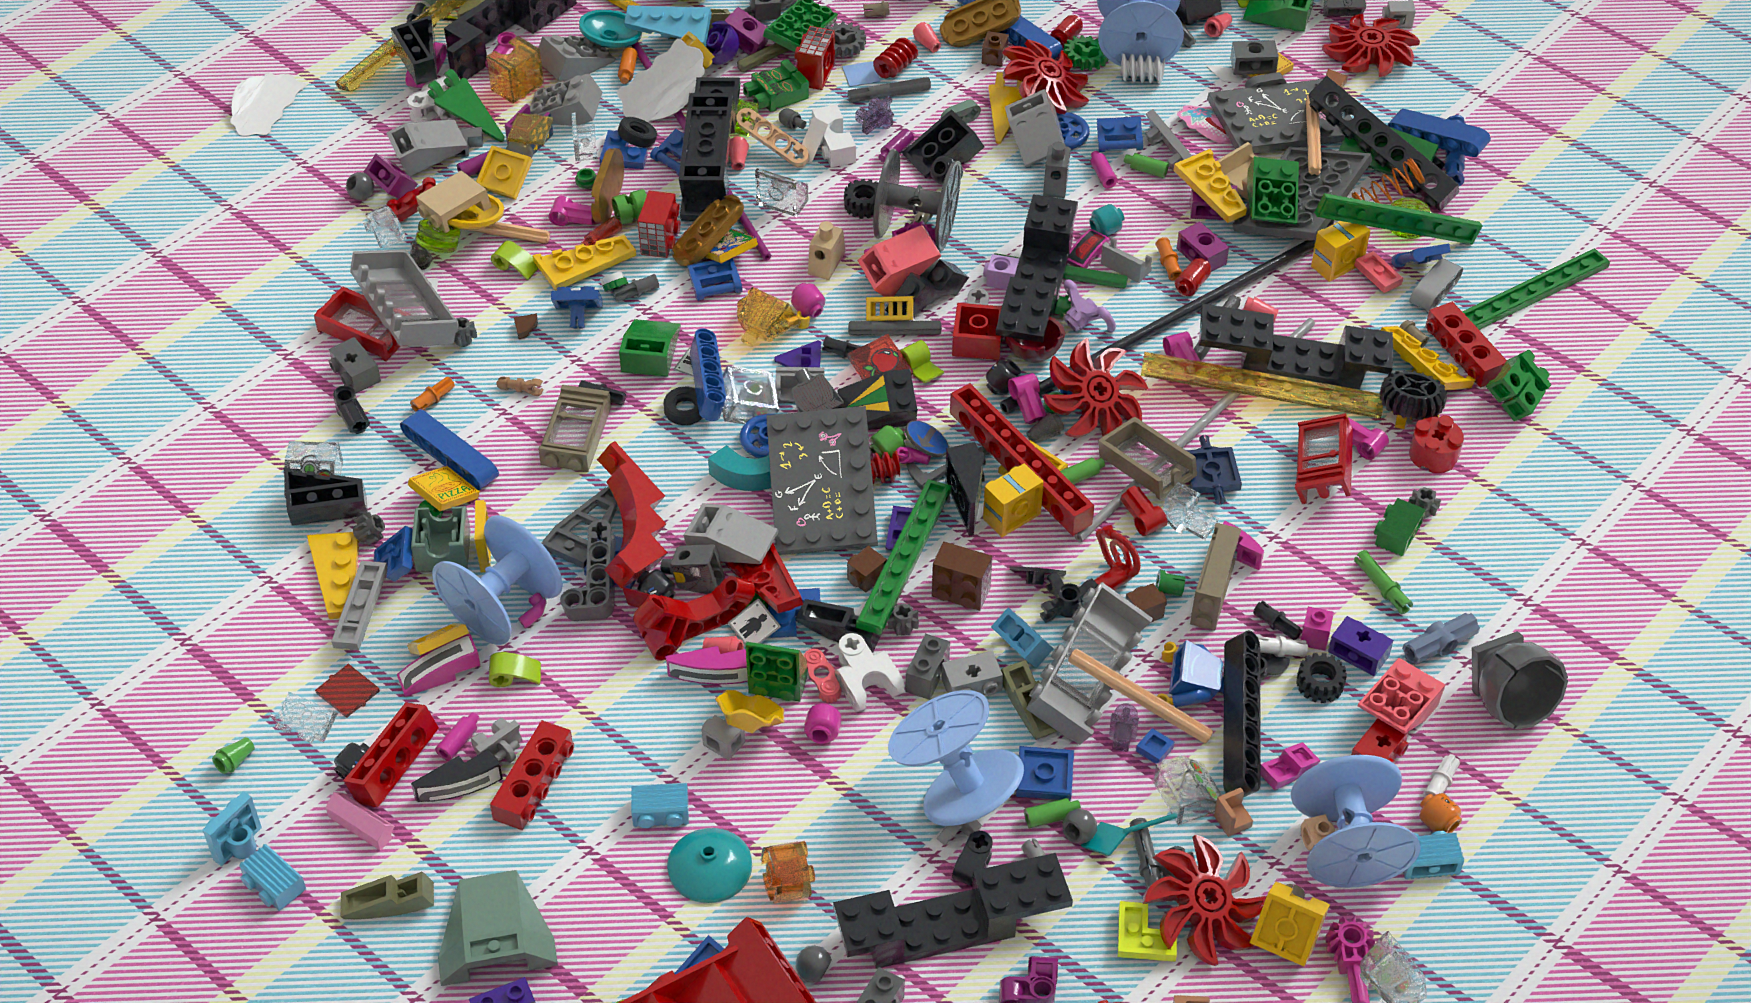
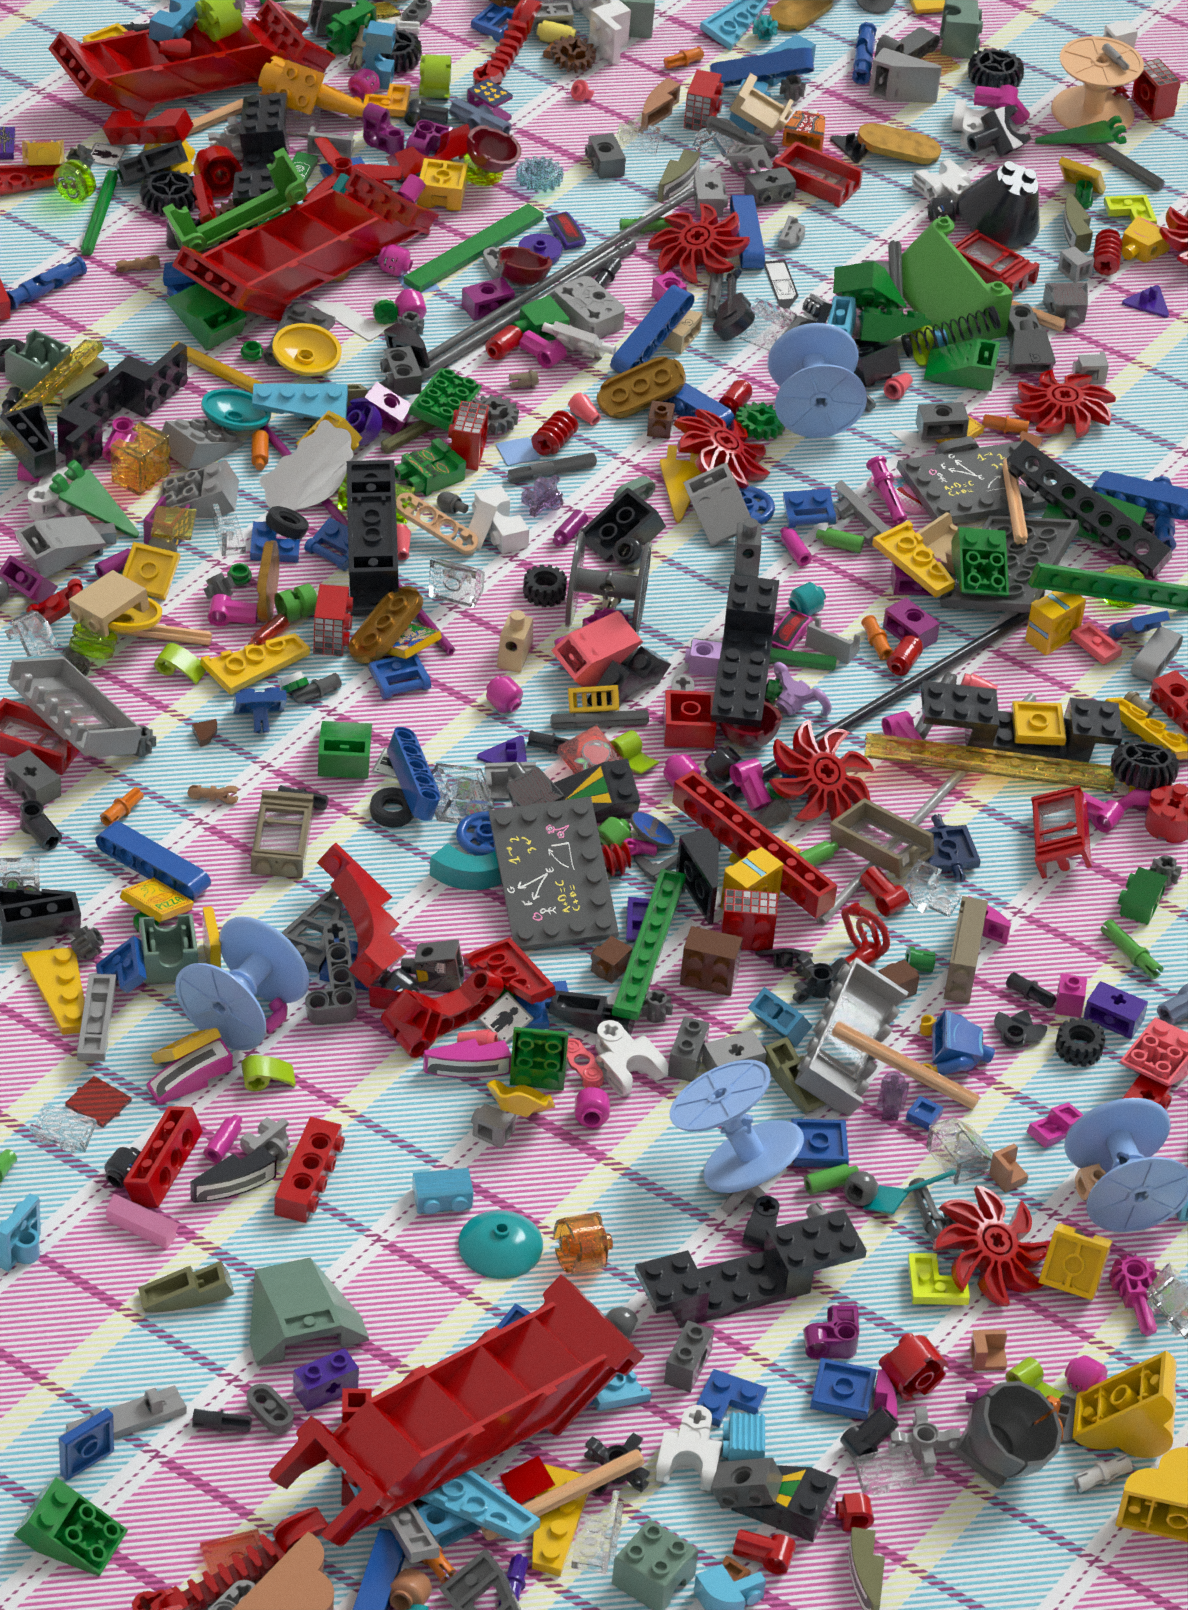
camera: 10 degrees left, 5 degrees down
(272, 877) = (66, 1277): medium azure brick -> none
(564, 187) = (219, 585): none -> dark grey gear
(733, 533) = (477, 931): light grey slope -> none
(766, 317) = (463, 712): clear yellow torso -> none
(962, 376) = (679, 766): none -> dark pink head
(1005, 534) = (751, 917): none -> red brick
(1142, 68) = (823, 436): white piece -> none
(1192, 111) = (883, 480): none -> dark pink pin
(1242, 714) = (1007, 1076): black beam -> none
(1281, 646) = (1036, 1014): white pin -> none
(1313, 62) = (1005, 423): none -> orange axle
(1313, 348) = (1038, 723): none -> yellow tile
(1402, 426) = (1136, 797): none -> dark pink arm
(1415, 170) = (1126, 536): orange piece -> none

